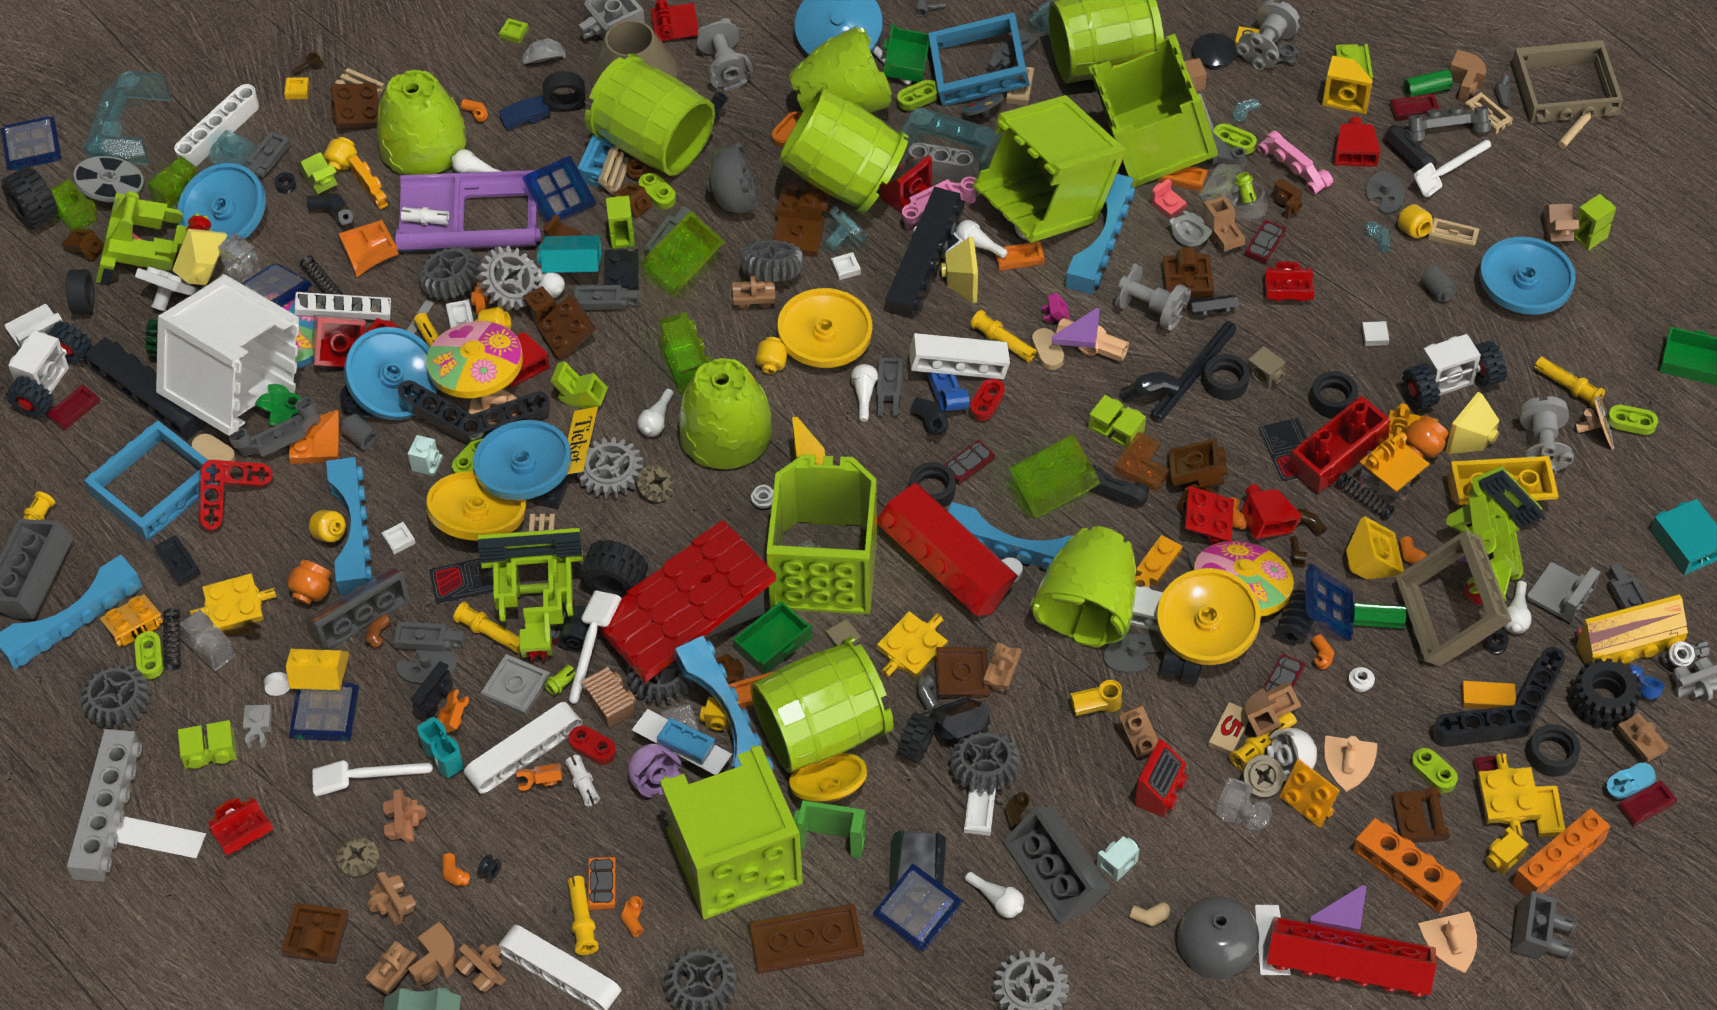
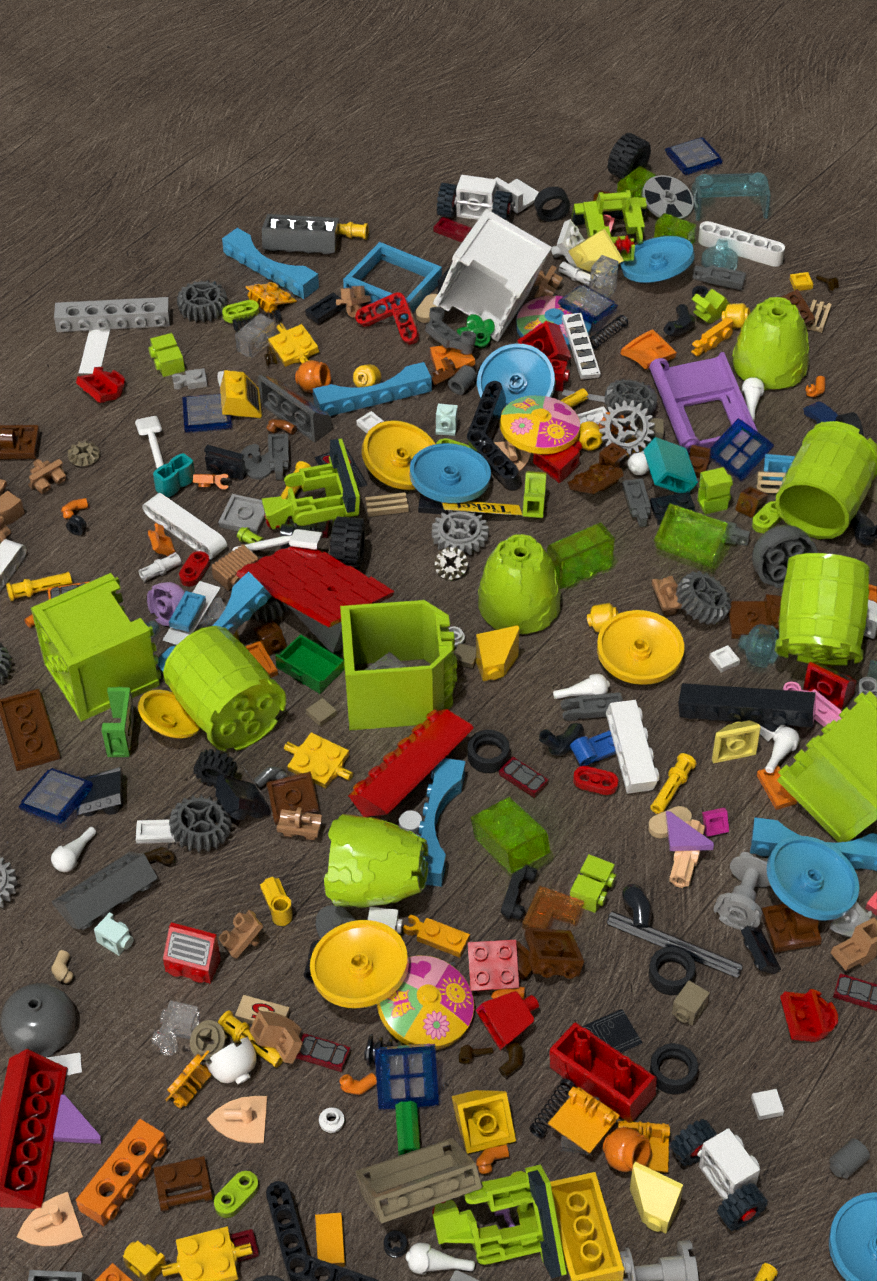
camera: 80 degrees right, 5 degrees down
(181, 522) = (353, 298): none -> medium nougat hips
(347, 444) = (440, 375): none -> reddish brown bracket
(405, 814) = (116, 469): nougat hips -> none
(425, 216) = (687, 375): white pin -> none
(1153, 237) = (812, 878): none -> dark azure dish

